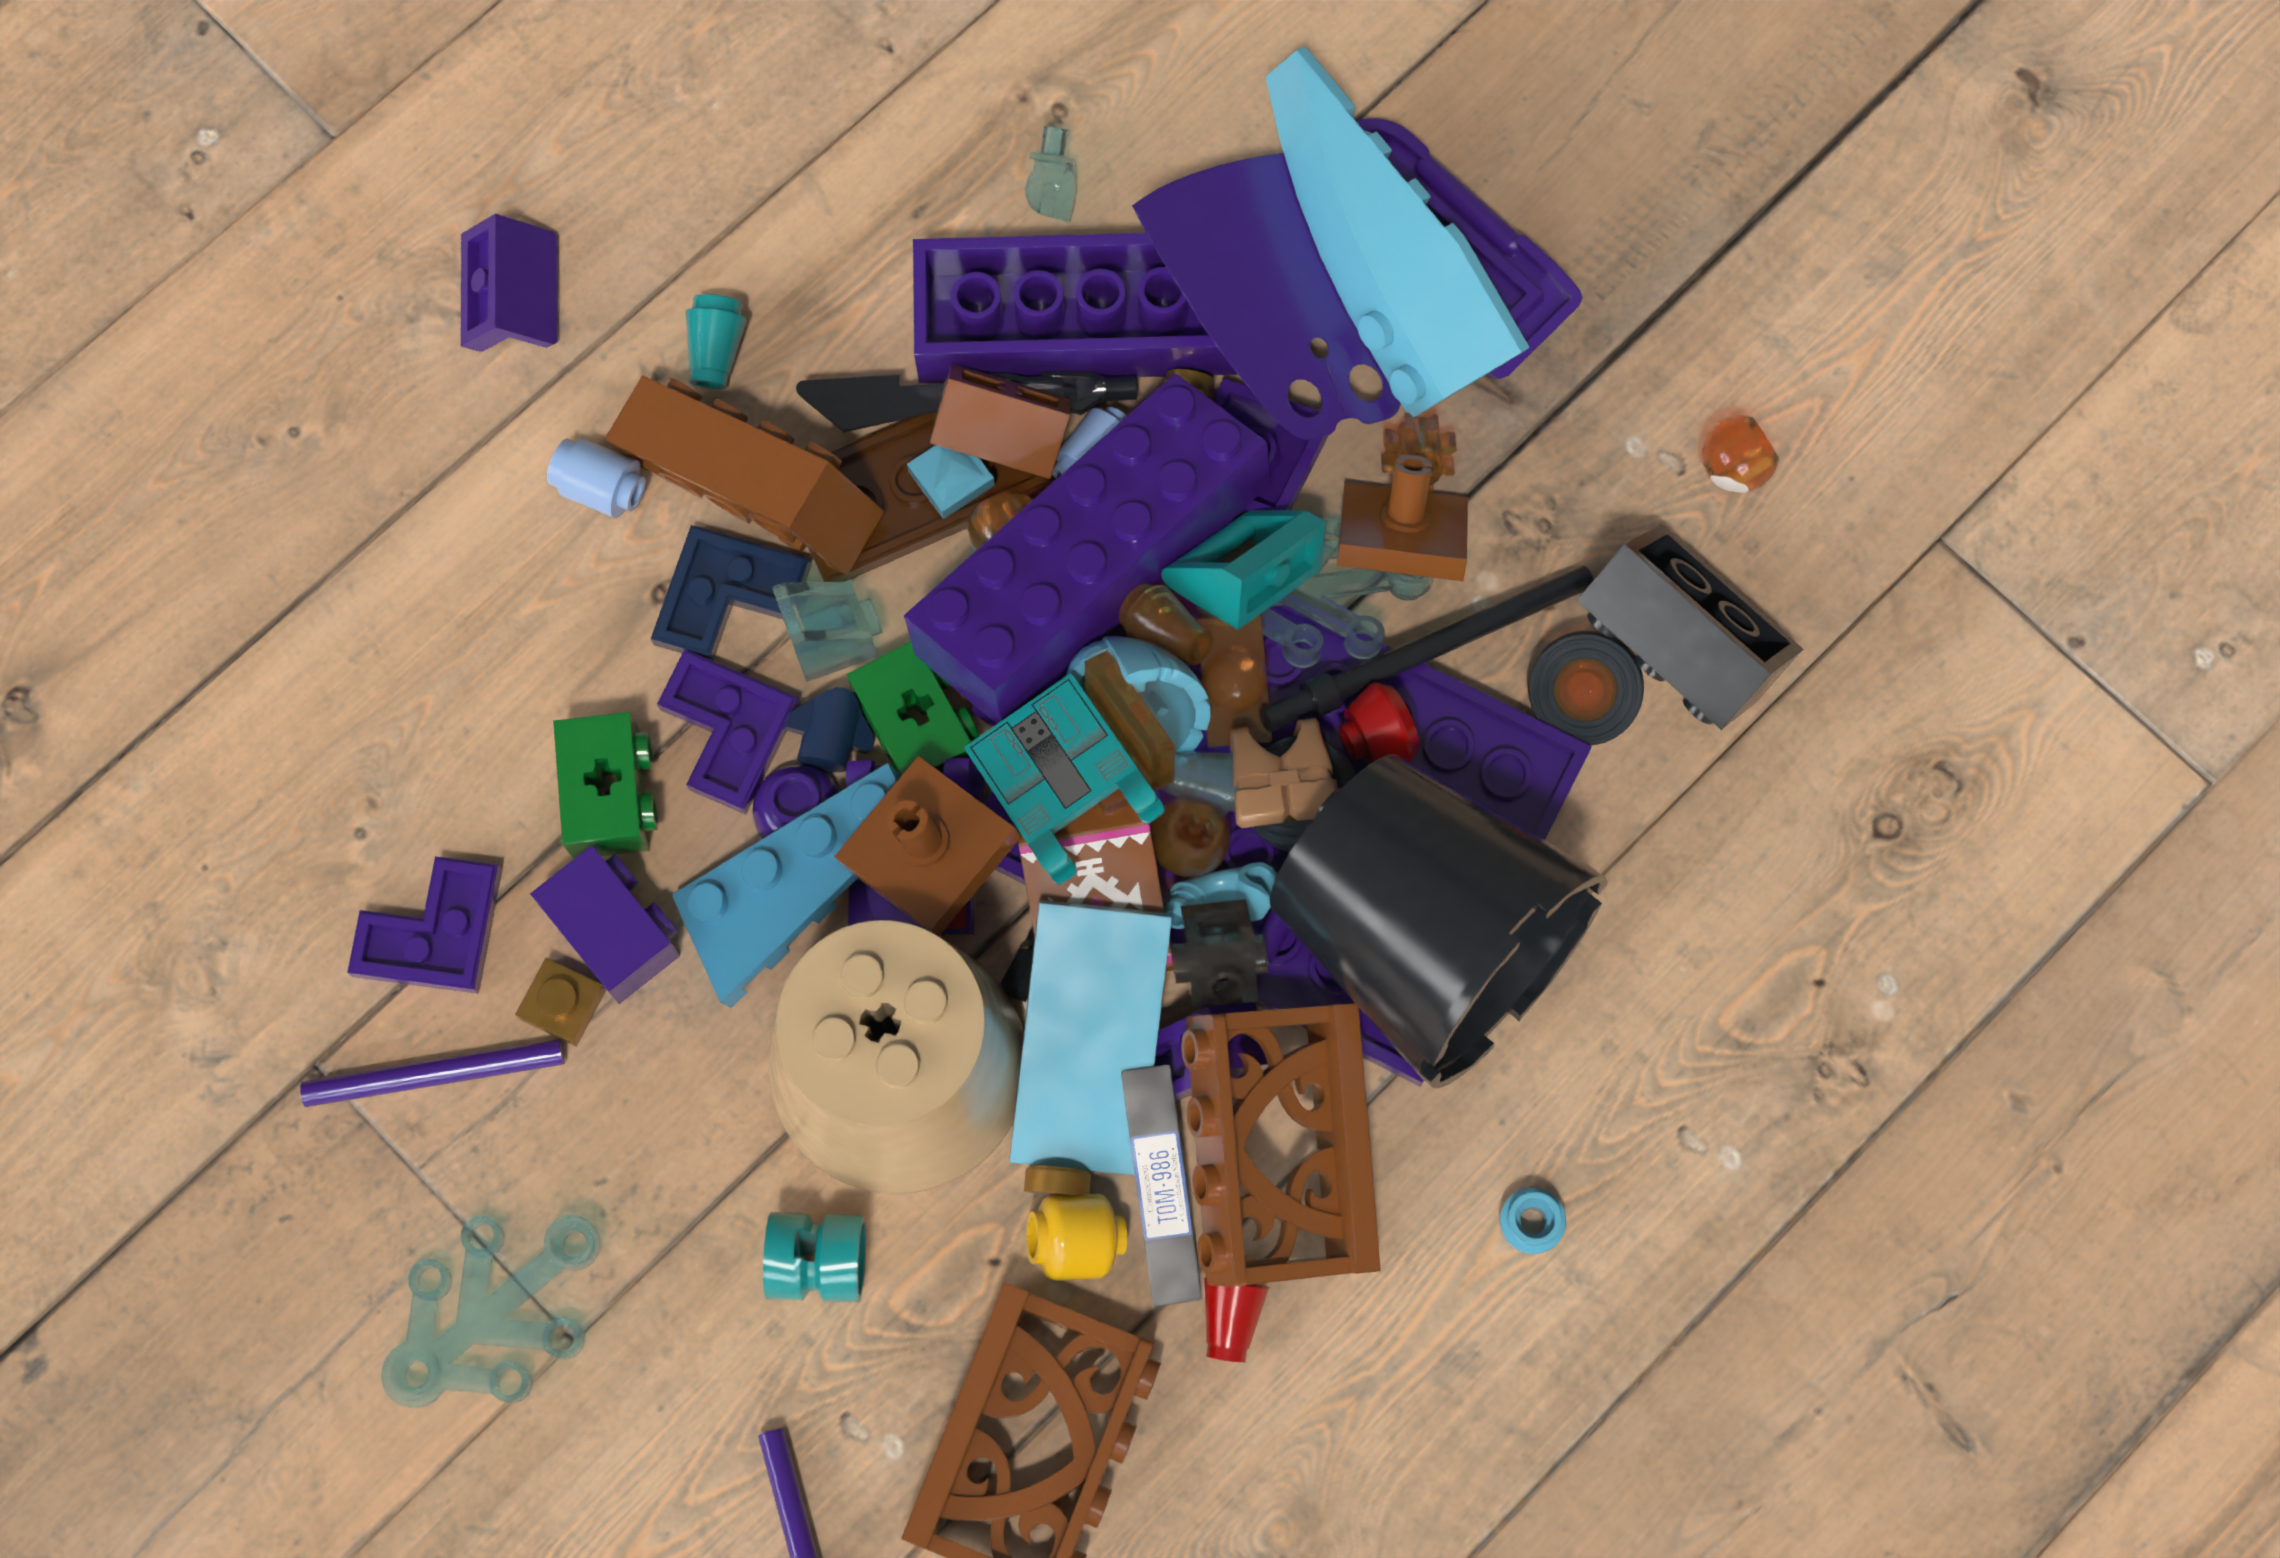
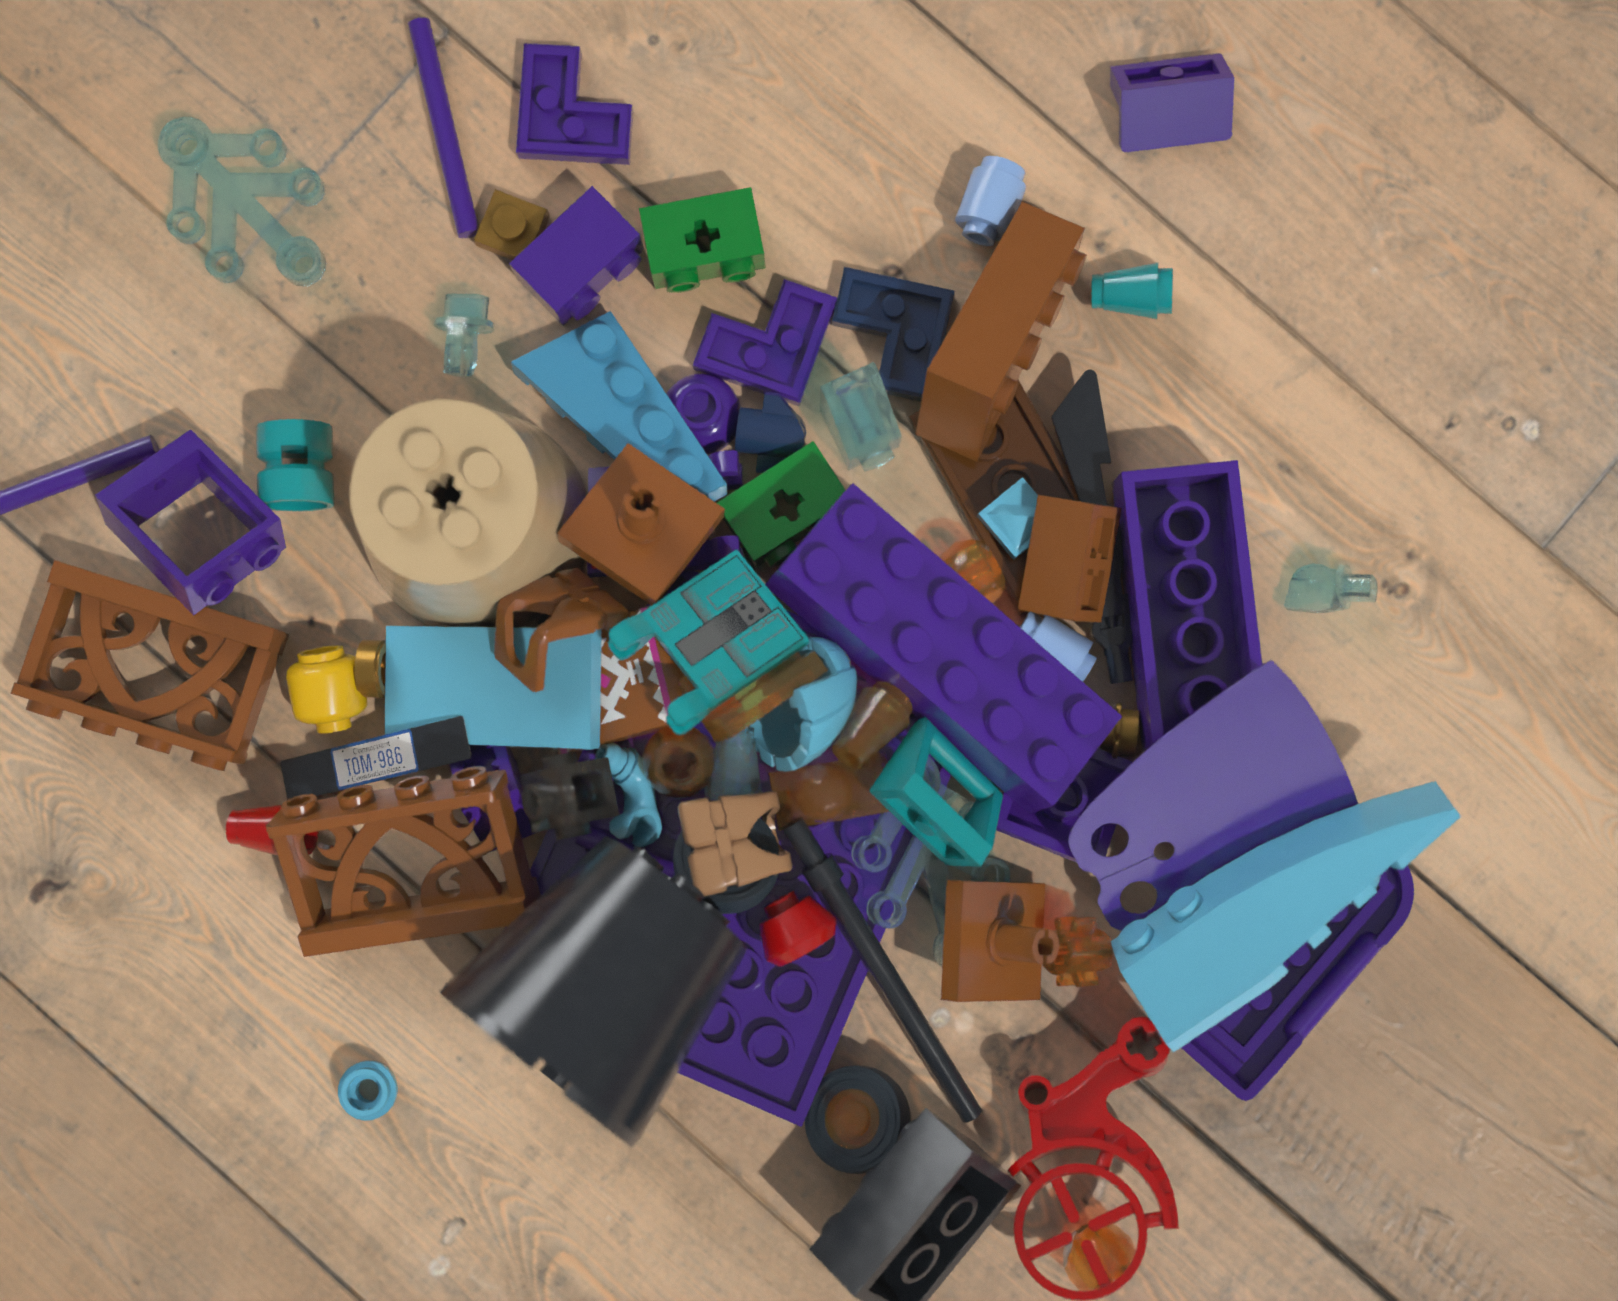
camera: 85 degrees right, 10 degrees up
(659, 1058) = (463, 320): none -> clear light blue piece
(802, 1364) = (165, 479): none -> dark purple window
(1024, 919) = (575, 610): none -> dark orange piece
(1595, 459) = (1079, 1119): none -> red piece

